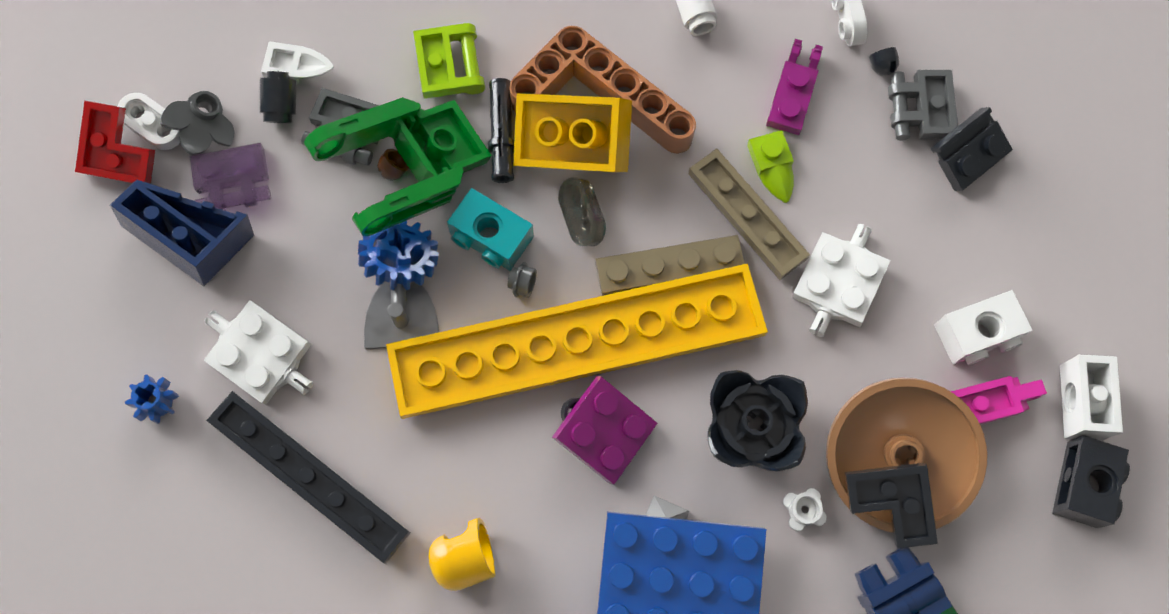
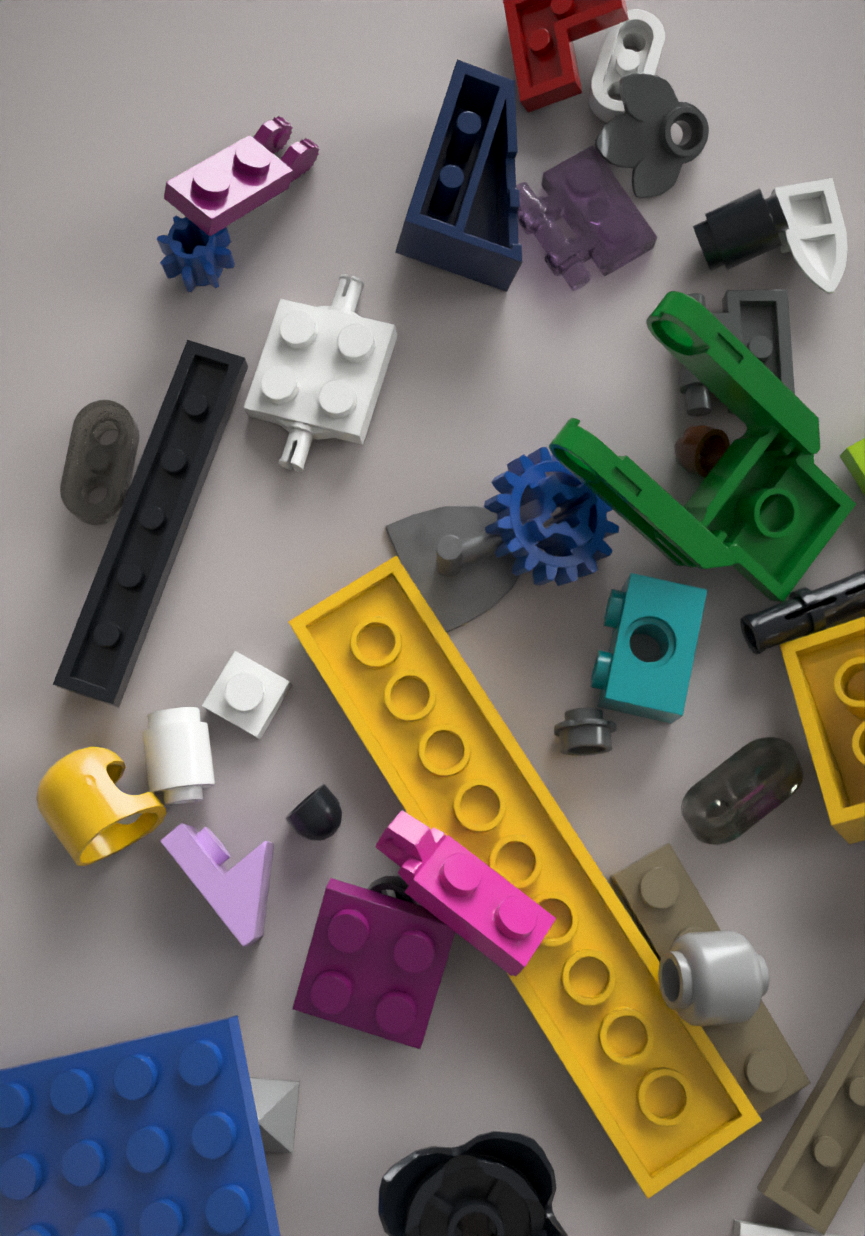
camera: 75 degrees right, 5 degrees up
(118, 357) = (240, 177): none -> magenta hinge
(260, 498) = (98, 465): none -> clear smoke plate
(432, 456) = (247, 695): none -> white plate
(452, 503) = (178, 755): none -> white brick
(513, 437) = (317, 815): none -> black hinge
(542, 495) = (235, 894): none -> lavender slope
(584, 366) = (466, 893): none -> dark pink hinge
(670, 257) = (713, 978): none -> light grey head

